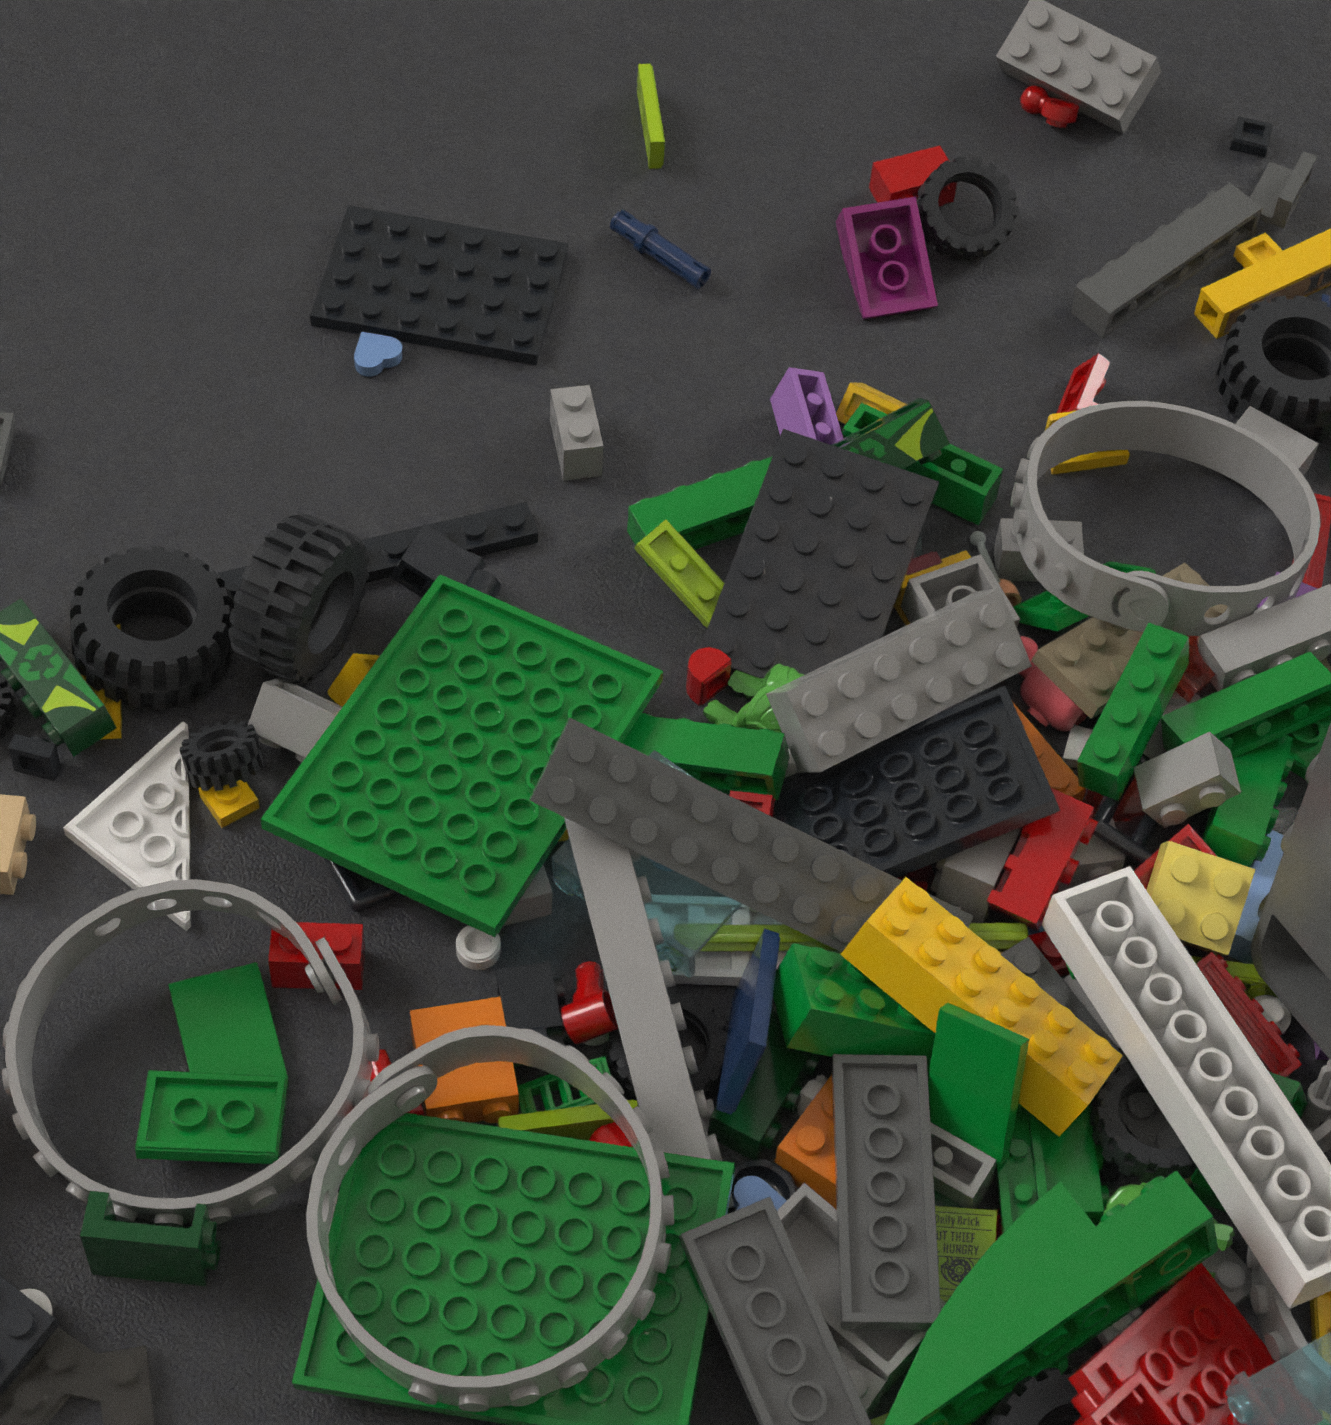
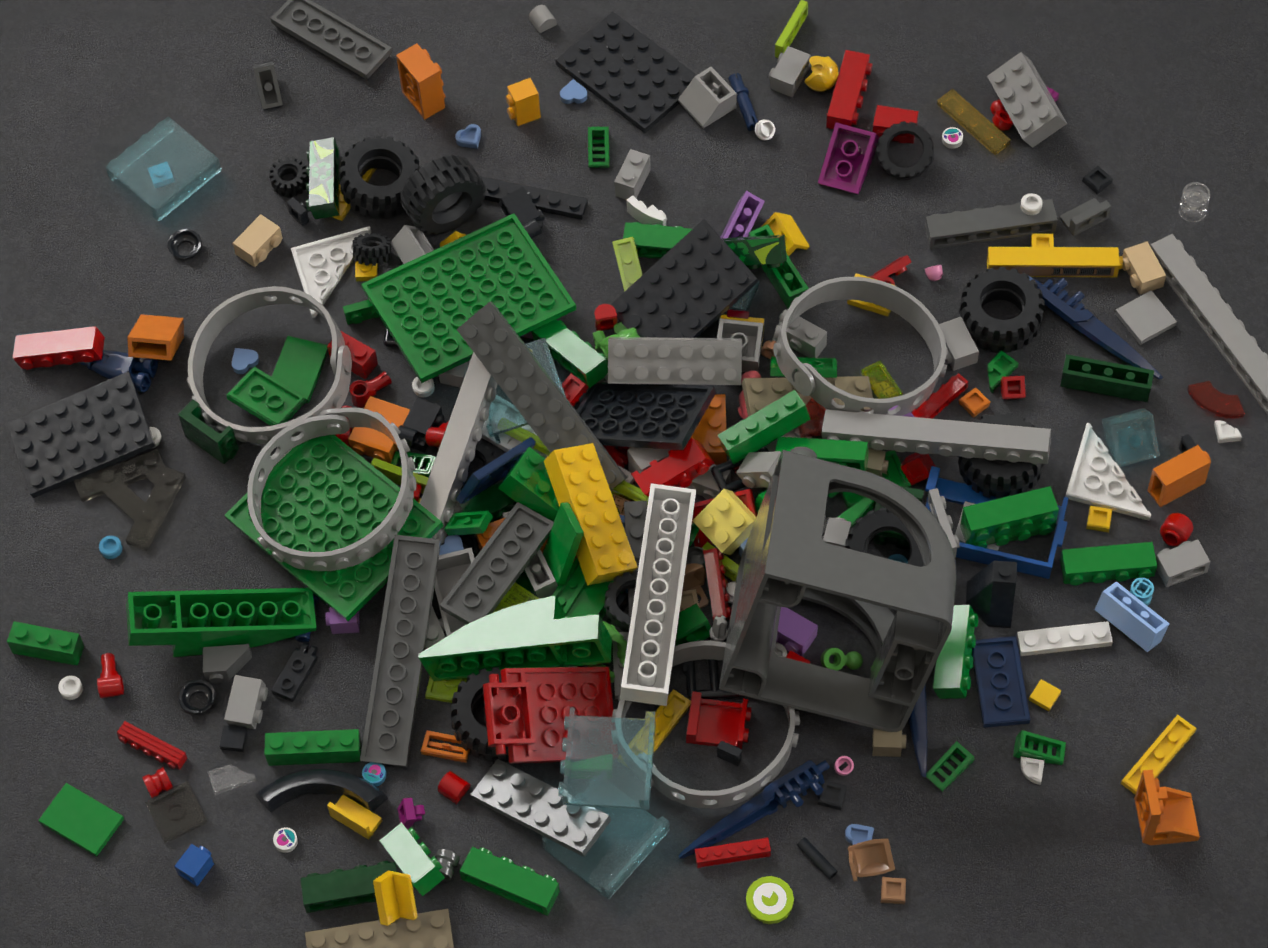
camera: 40 degrees right, 5 degrees up
(112, 1070) = (243, 360): none -> medium blue tile
(117, 436) = (421, 80): none -> orange brick
(239, 264) = (542, 18): none -> light grey brick
(250, 497) = (469, 136): none -> medium blue tile
(279, 869) = (359, 312): none -> green plate
(314, 396) = (523, 102): none -> light orange brick
(391, 999) = (369, 389): none -> red pin
(478, 390) = (598, 132): none -> green slope
(605, 263) = (708, 97): none -> light grey slope
(633, 484) = (645, 215): none -> white slope
(696, 175) = (790, 71): none -> light grey brick
(726, 274) = (764, 129): none -> white plate
(754, 156) = (823, 74): none -> yellow cap
(767, 1140) = (468, 523): none -> green plate
(805, 164) = (848, 89): none -> red brick
(1008, 163) = (952, 137): none -> white tile
(1016, 132) = (973, 121): none -> clear yellow tile
(1145, 365) = (934, 272): none -> bright pink hinge
(1210, 563) = (881, 381): none -> clear neon green tile
(1212, 201) = (1031, 204): none -> white tile

